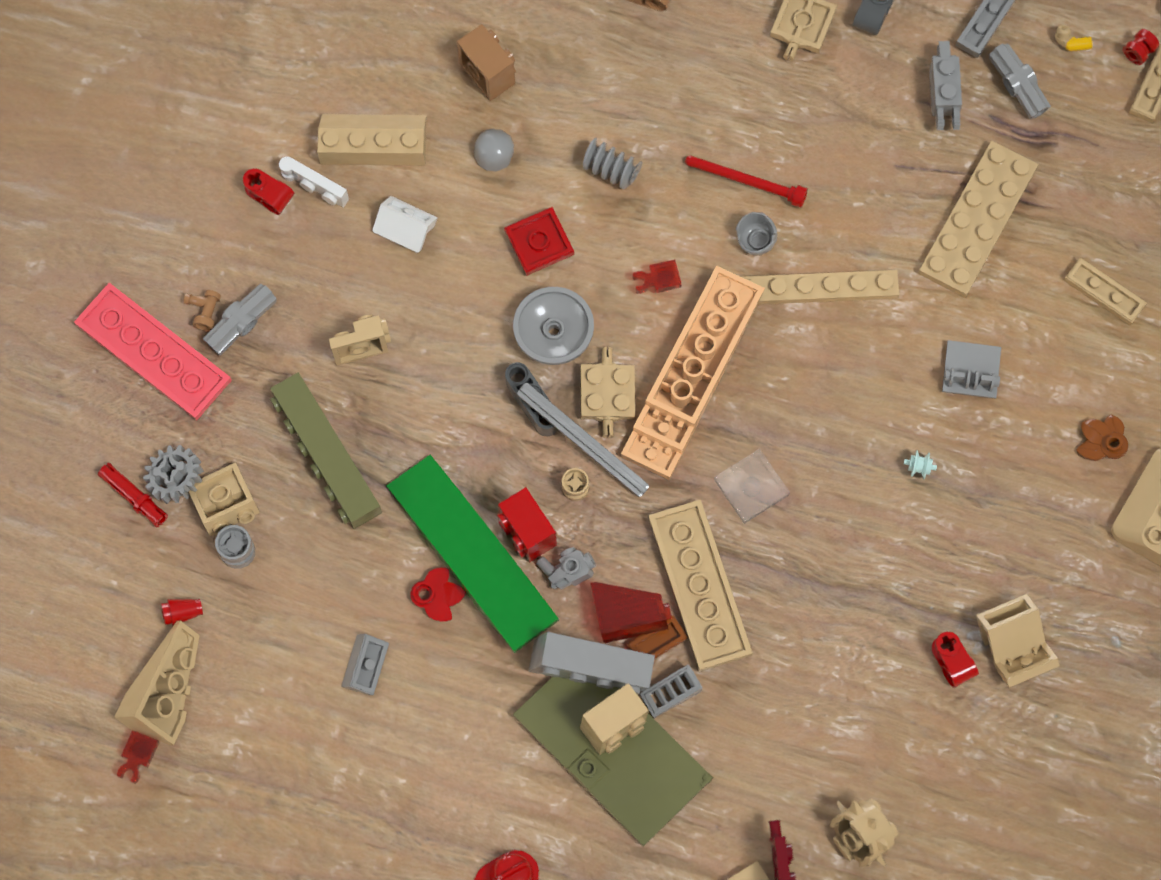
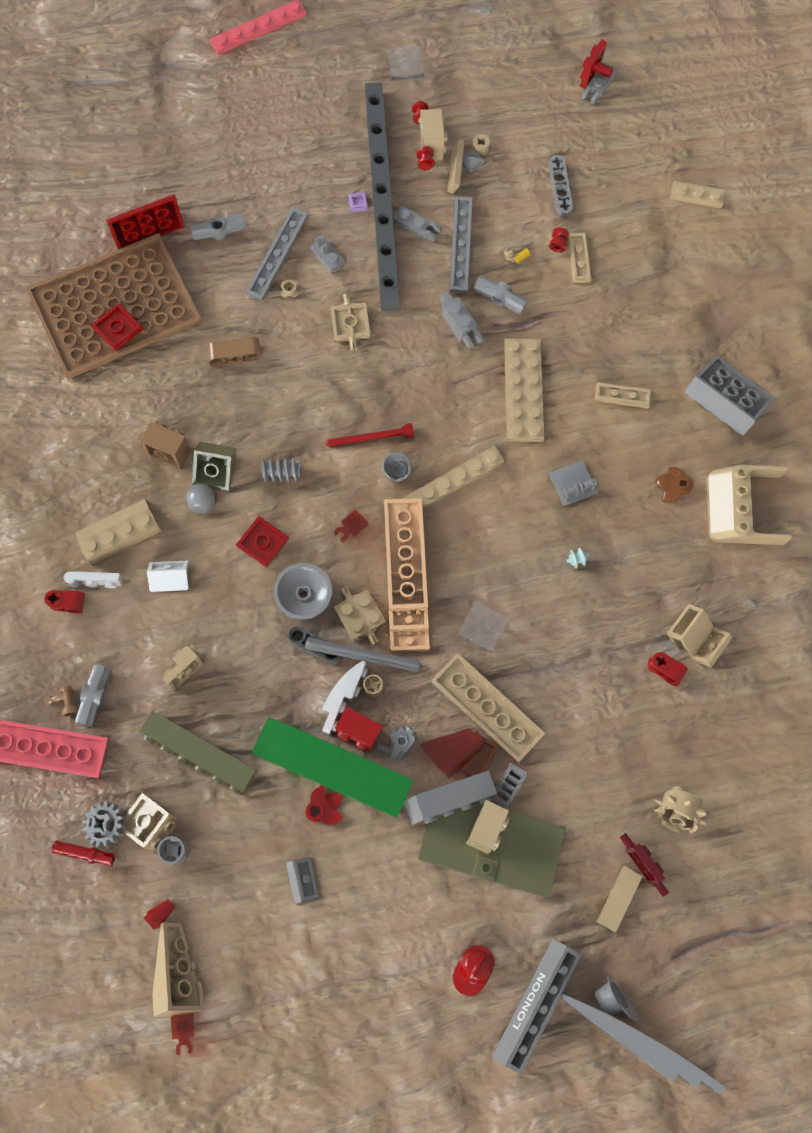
camera: 35 degrees left, 0 degrees up
(531, 116) = (213, 465): none -> olive slope
(541, 470) = (345, 689): none -> white slope

